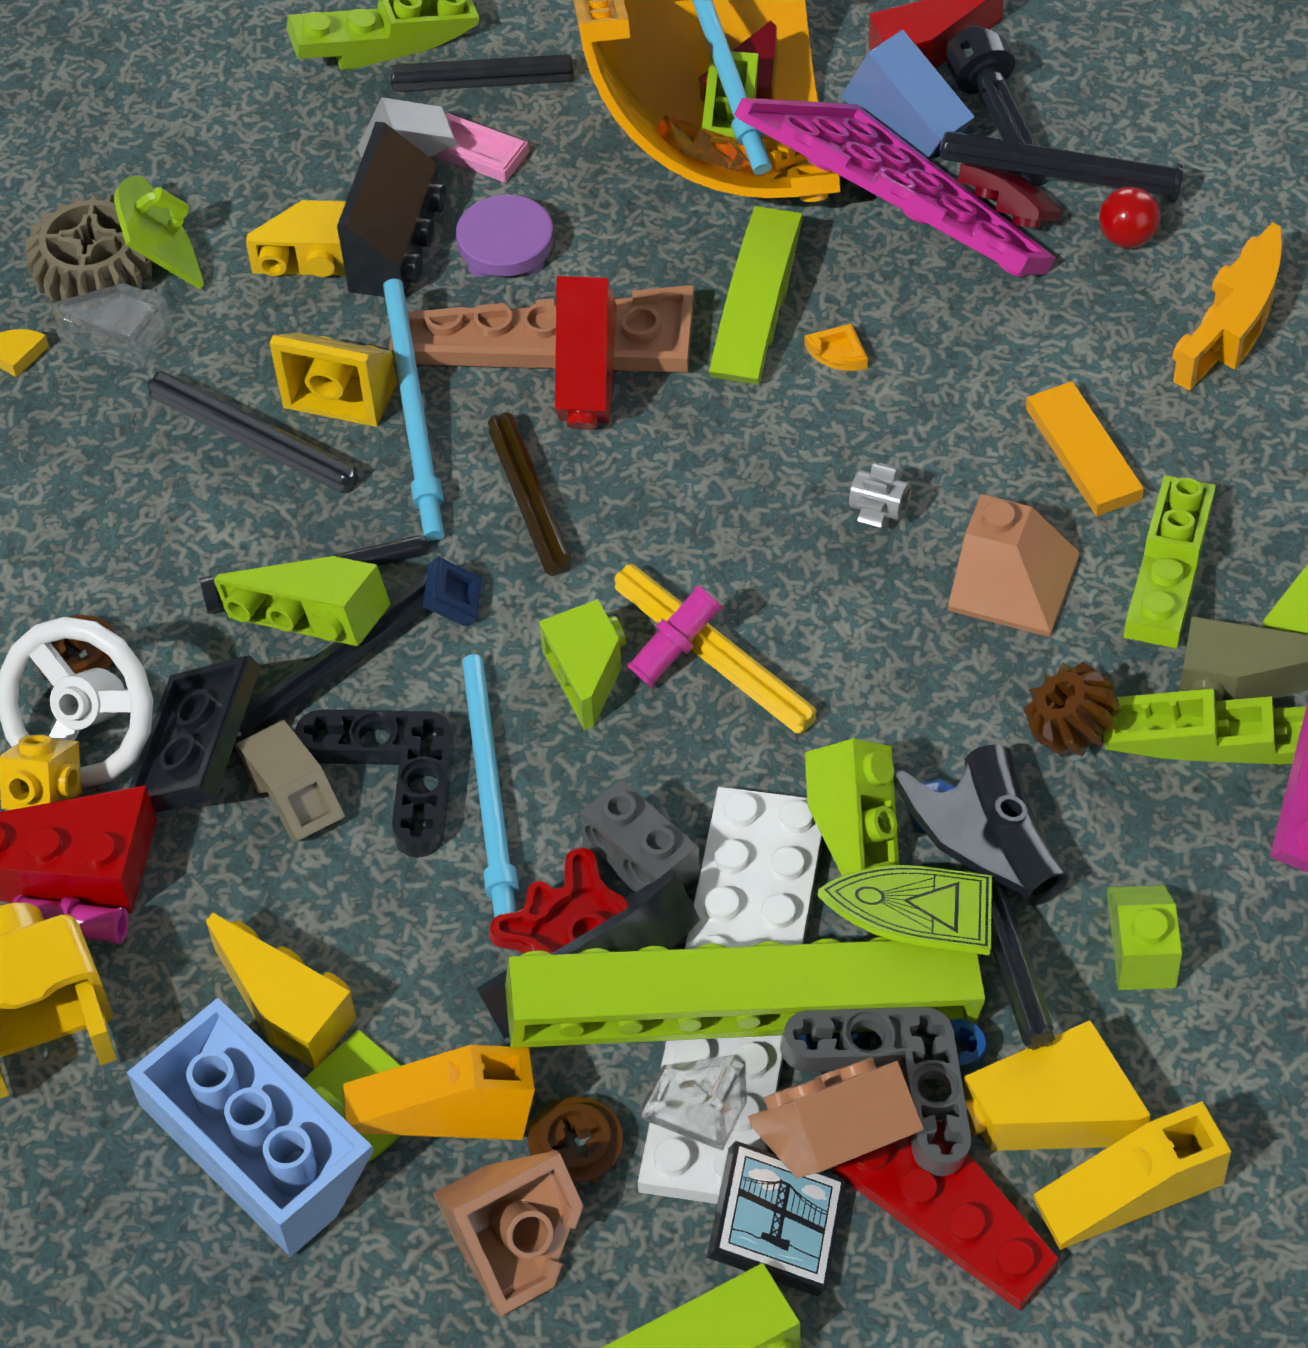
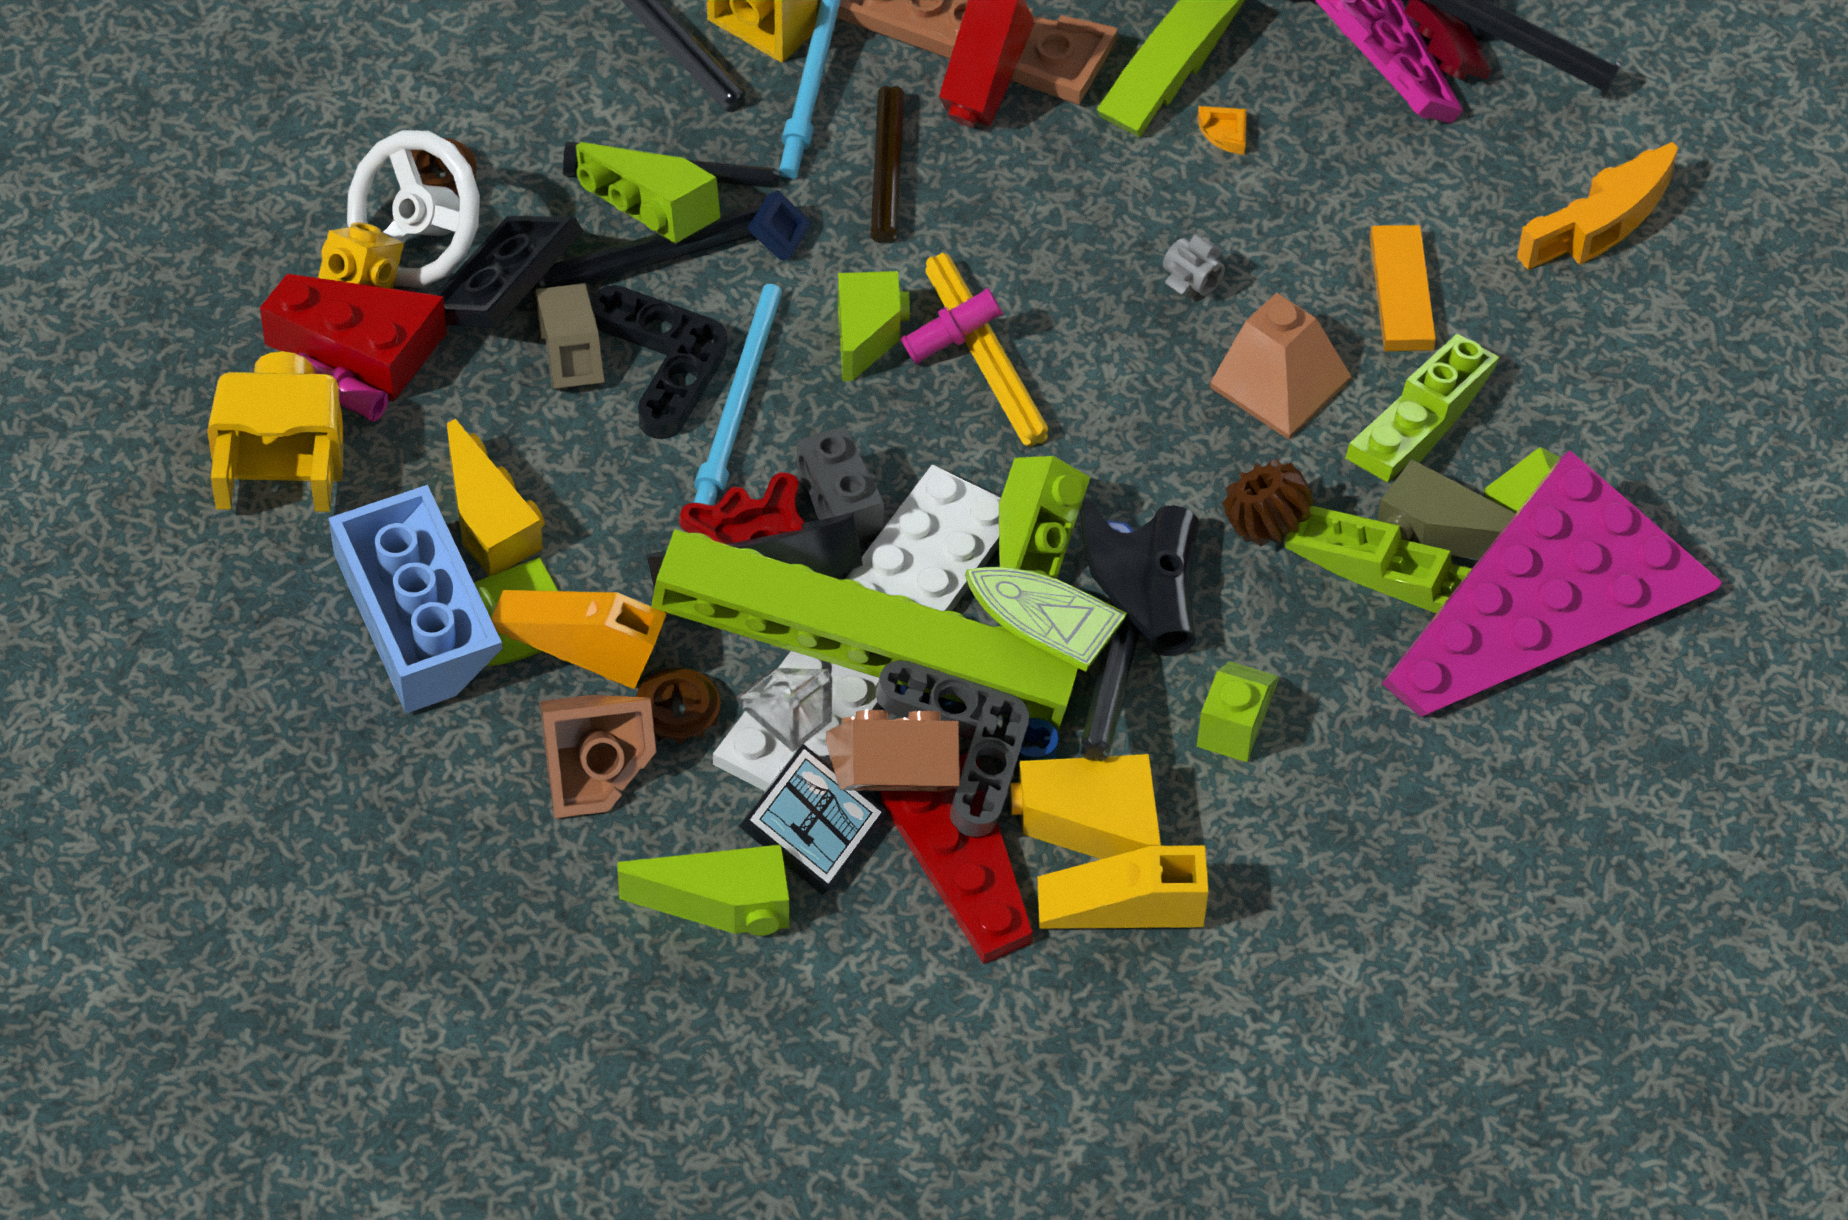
camera: 15 degrees right, 0 degrees up
(1129, 217) = (1547, 95): red piece -> none

